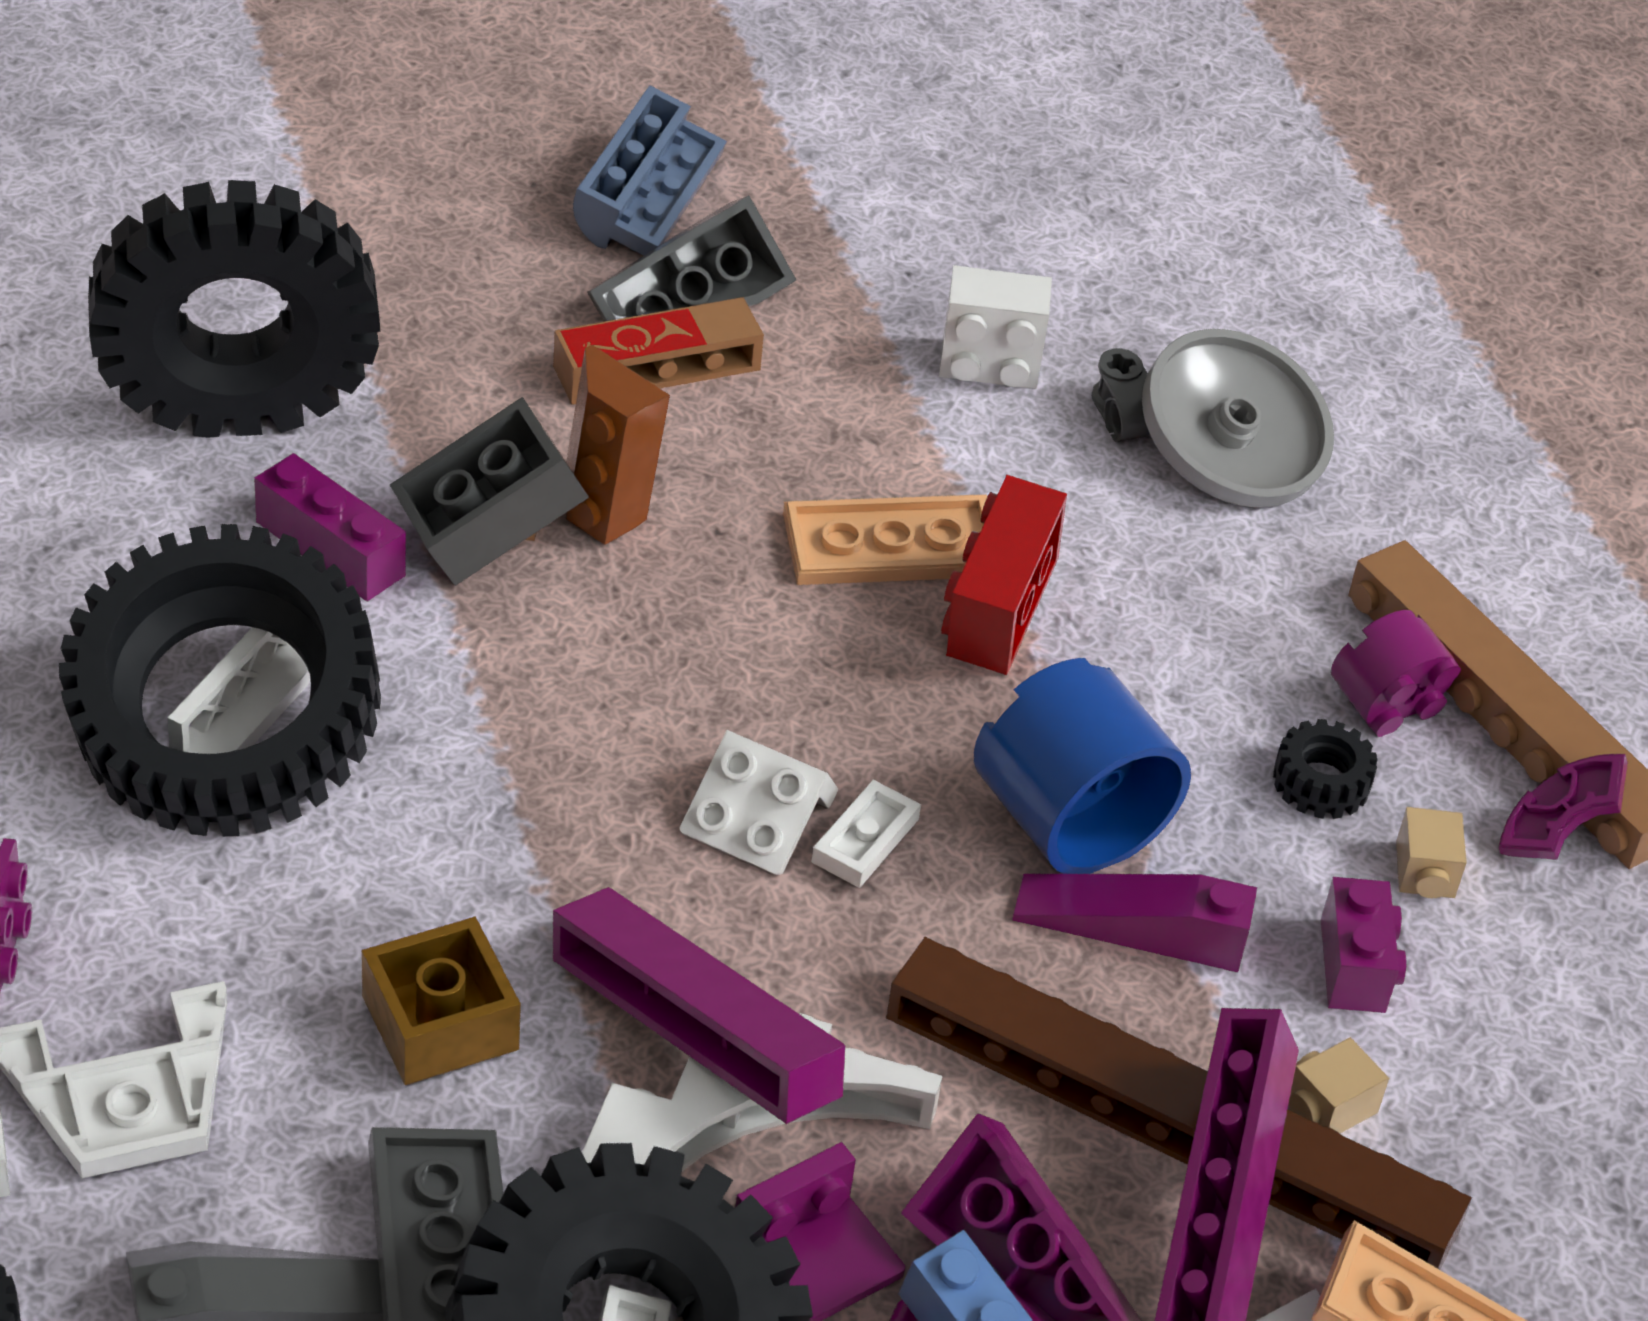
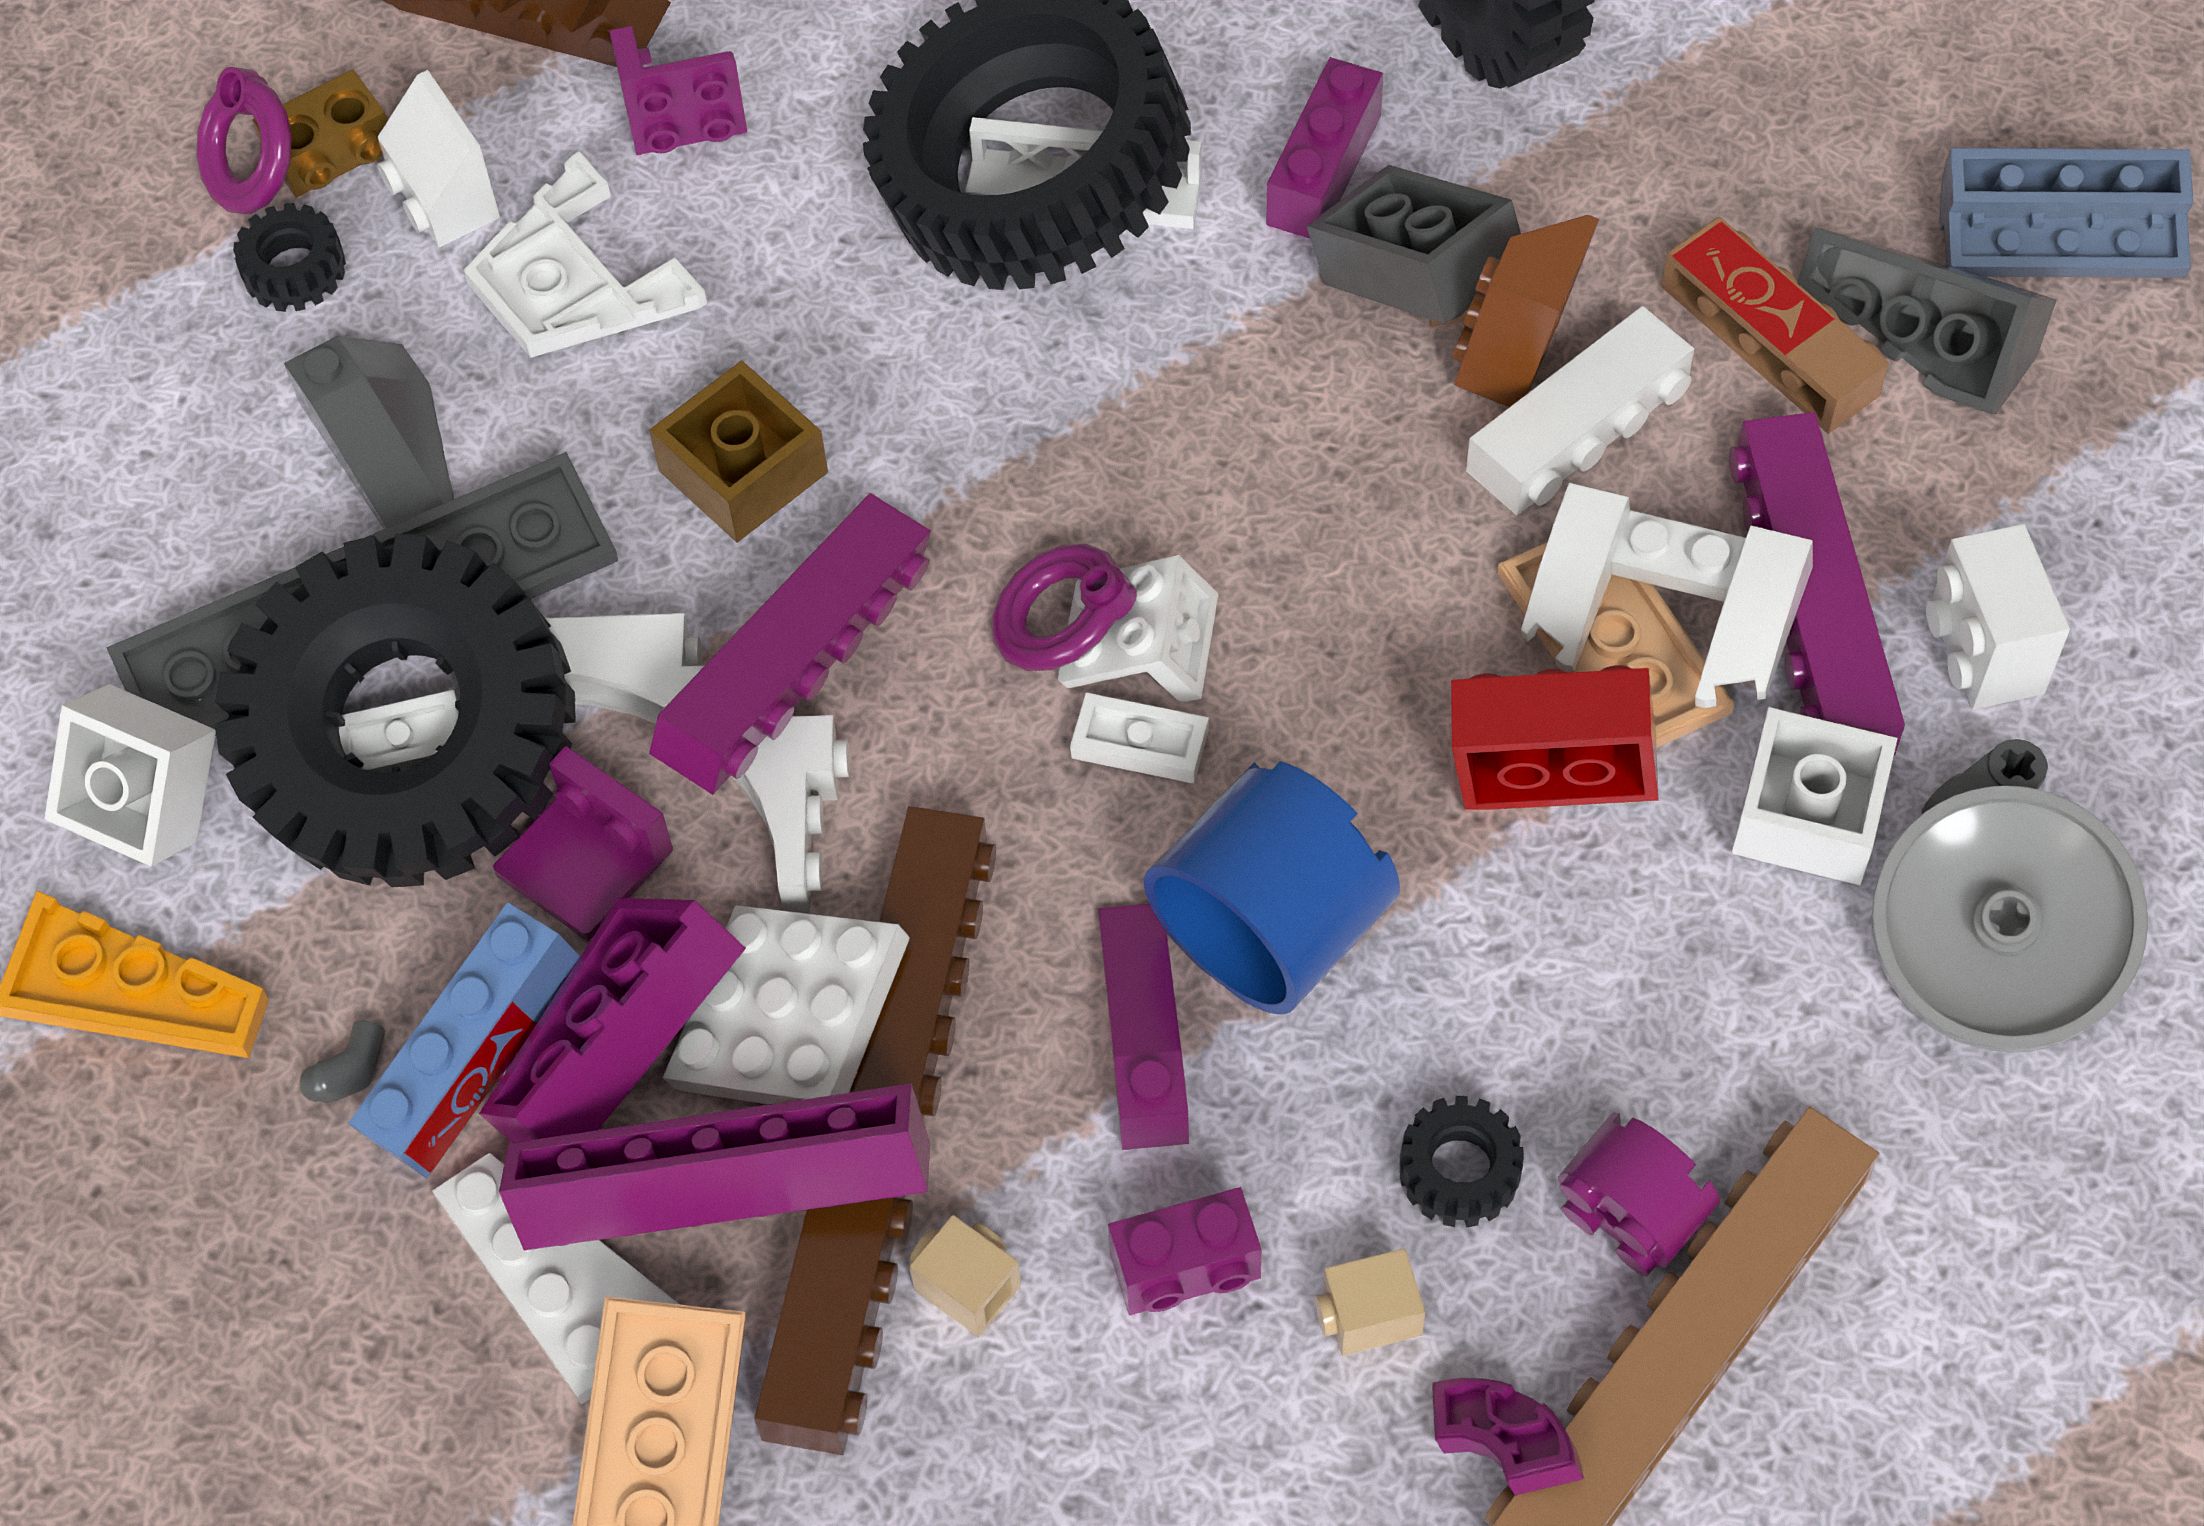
camera: 80 degrees right, 15 degrees up
(696, 494) = (1580, 411): none -> white brick
(711, 791) = (1104, 591): none -> magenta piece
(829, 495) = (1753, 576): none -> white wedge
(908, 413) = (1834, 635): none -> magenta brick
(1071, 1112) = (789, 1009): none -> white plate
(1105, 470) = (1815, 796): none -> white brick

